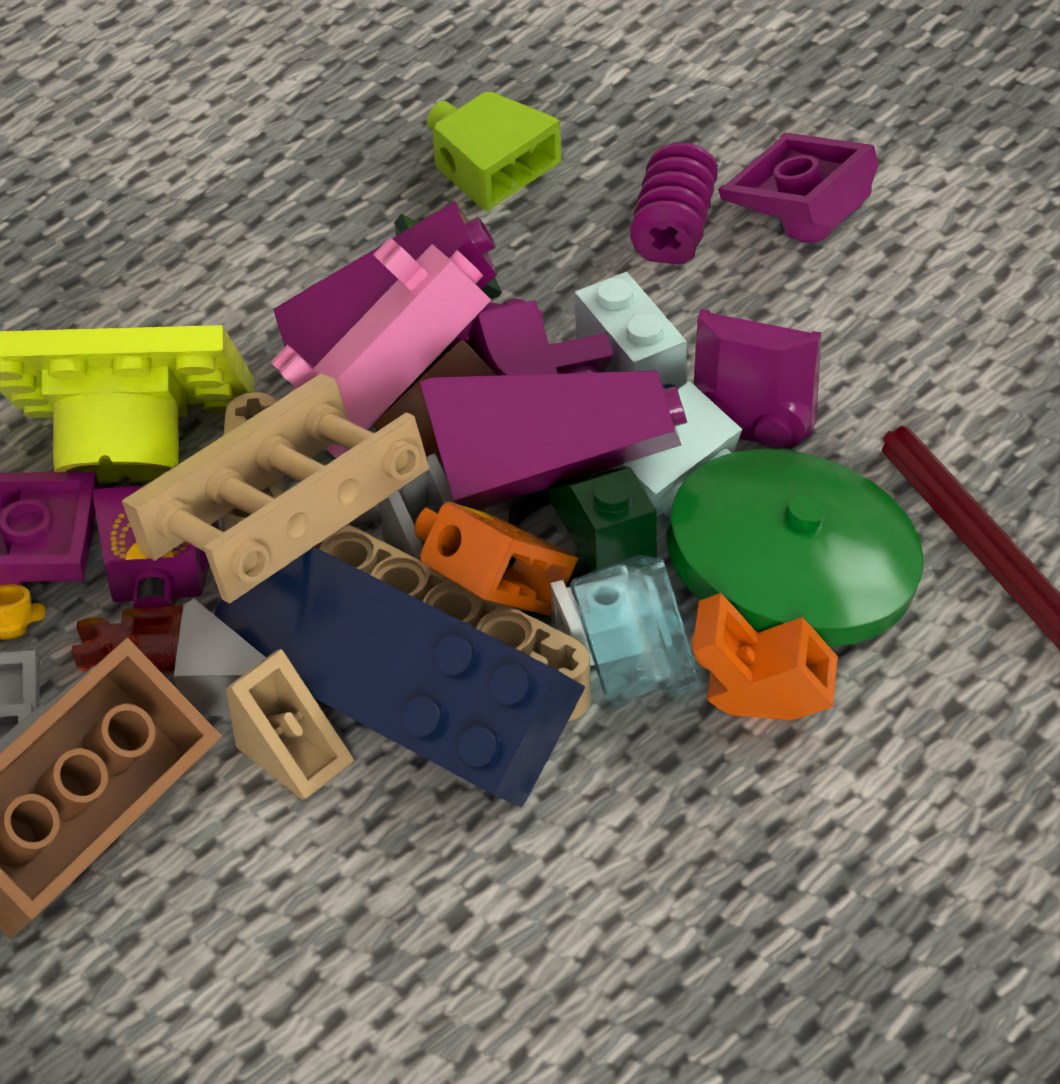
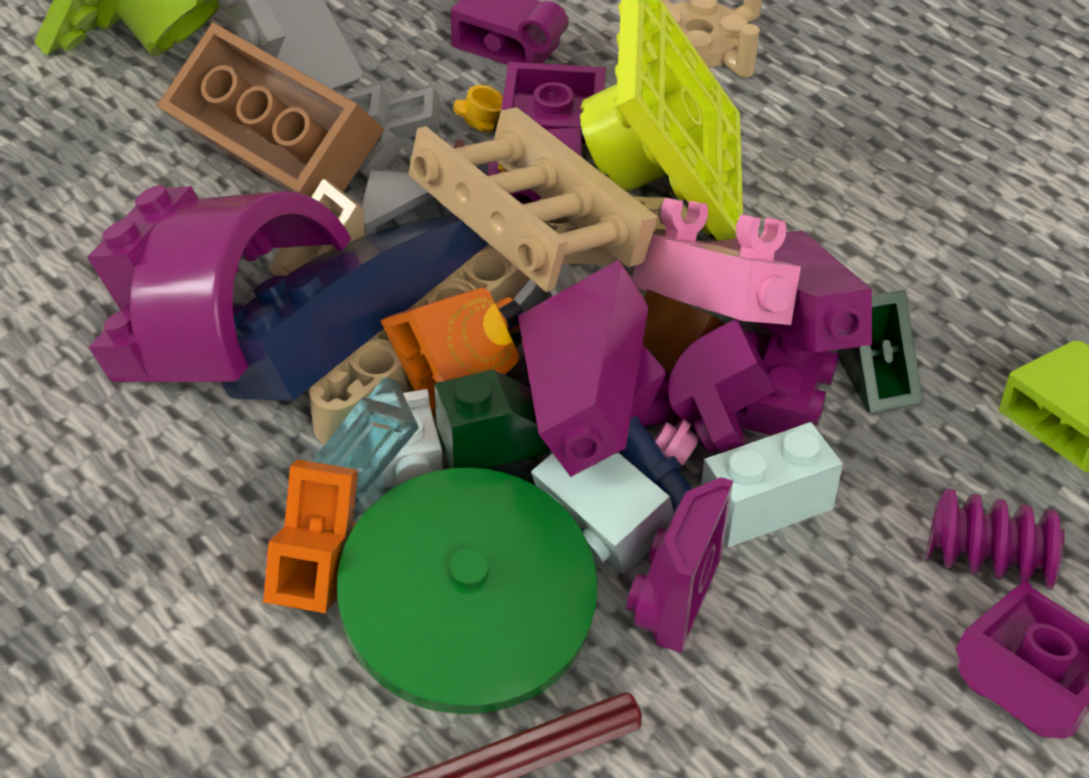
camera: 90 degrees right, 0 degrees up
(390, 754) = (176, 273): none -> magenta piece

